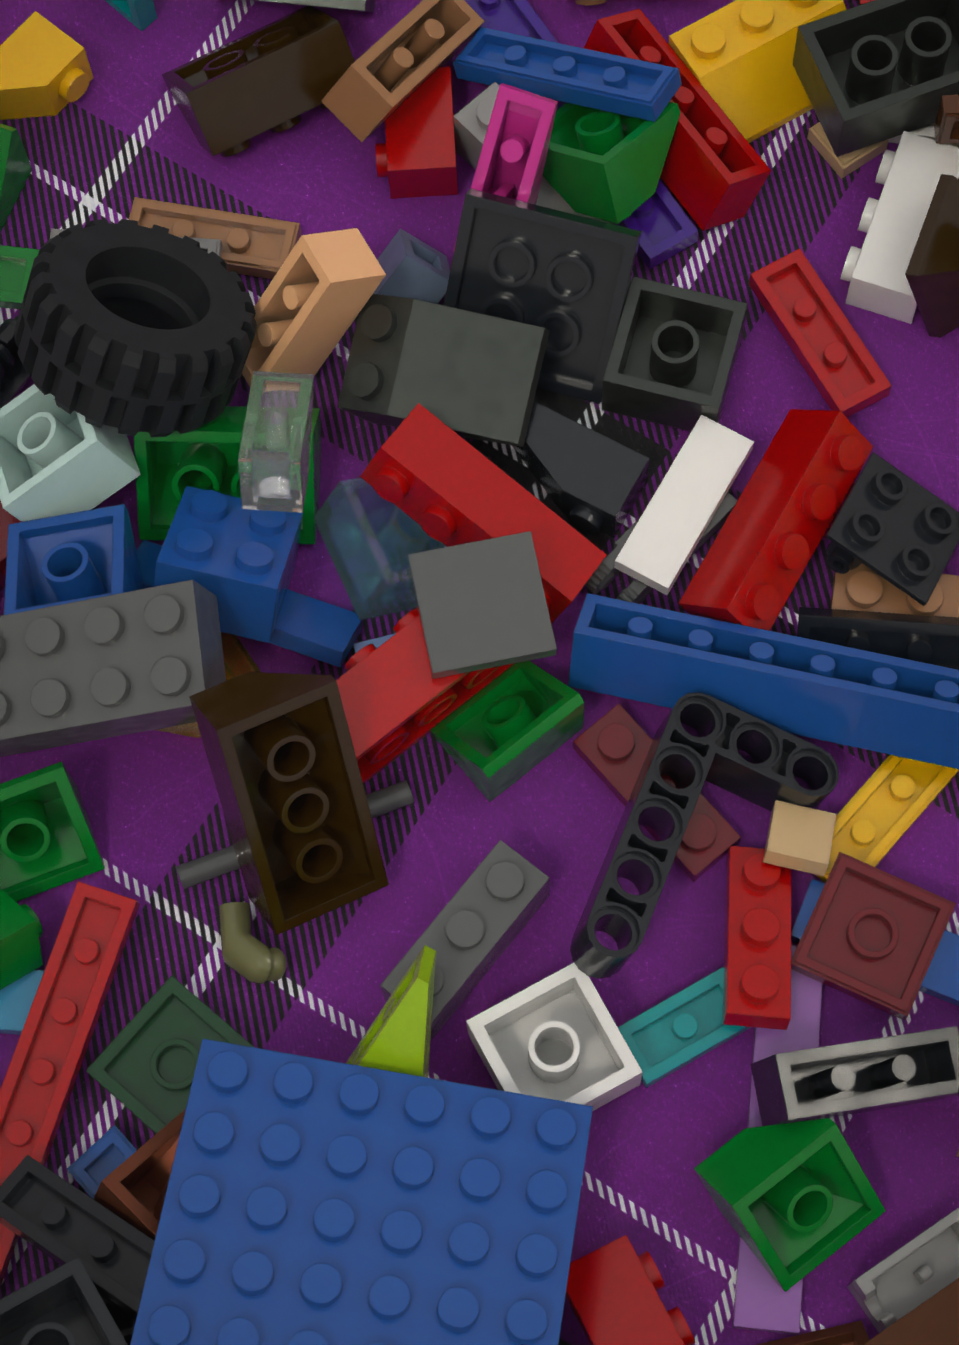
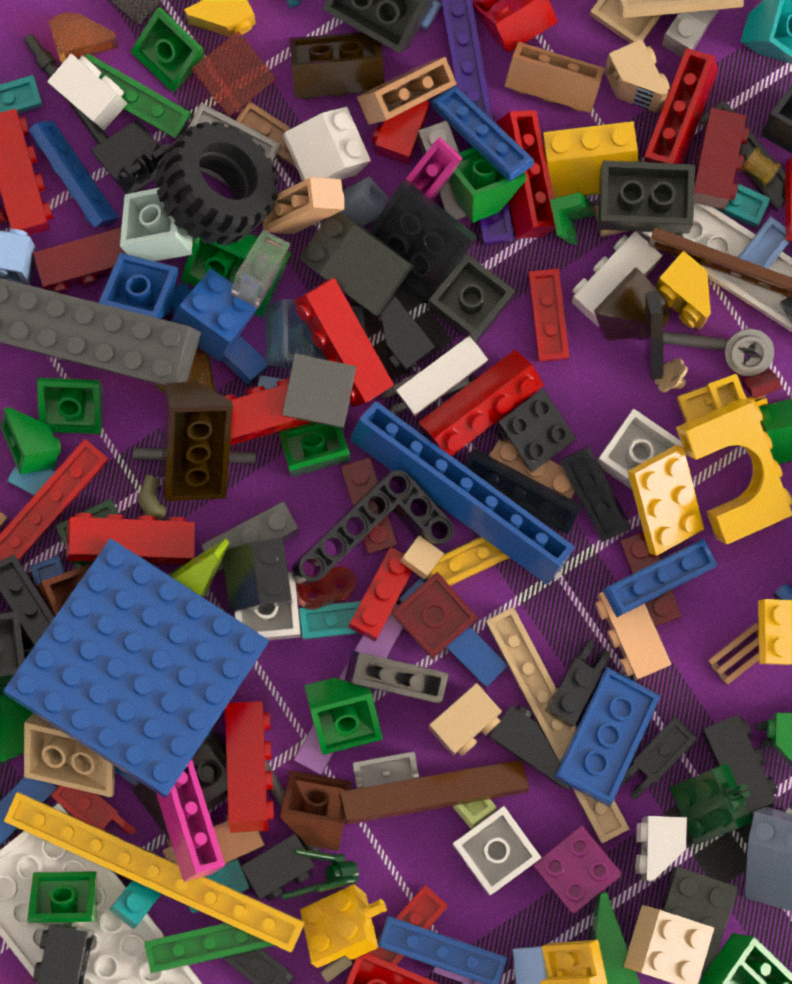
camera: 15 degrees right, 10 degrees up
(88, 160) = (233, 74): none -> clear red plate
(297, 1012) = (151, 539): none -> red brick
(300, 192) = (327, 146): none -> white slope
(516, 992) = (257, 575): none -> black slope
(648, 975) = (326, 590): none -> clear red plate
(780, 138) = (567, 210): none -> green panel

